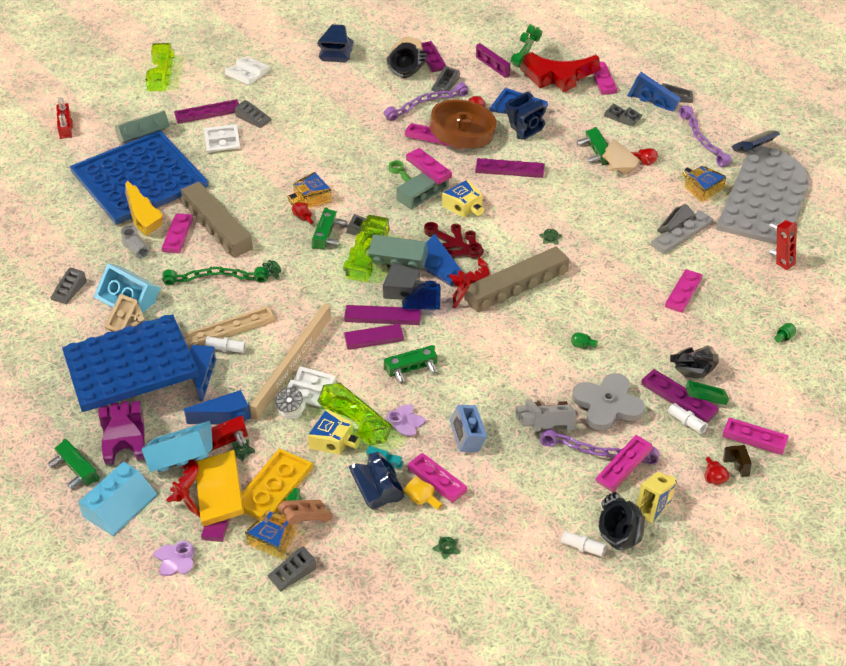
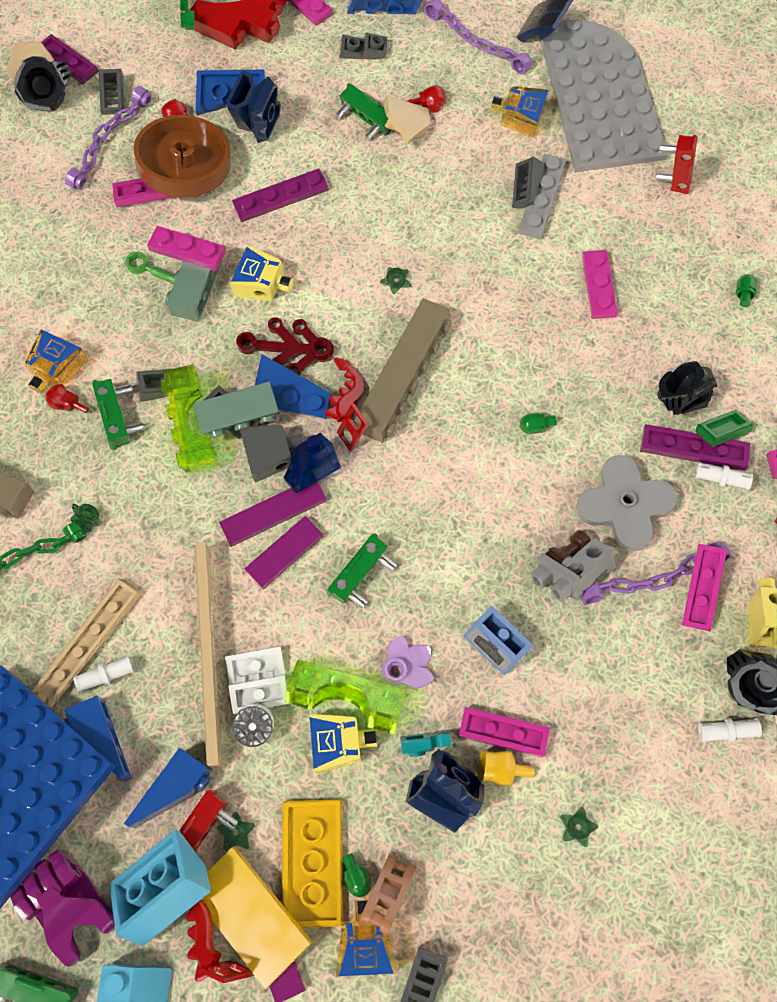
camera: 30 degrees left, 25 degrees up
(493, 60) = (152, 32): magenta tile -> none

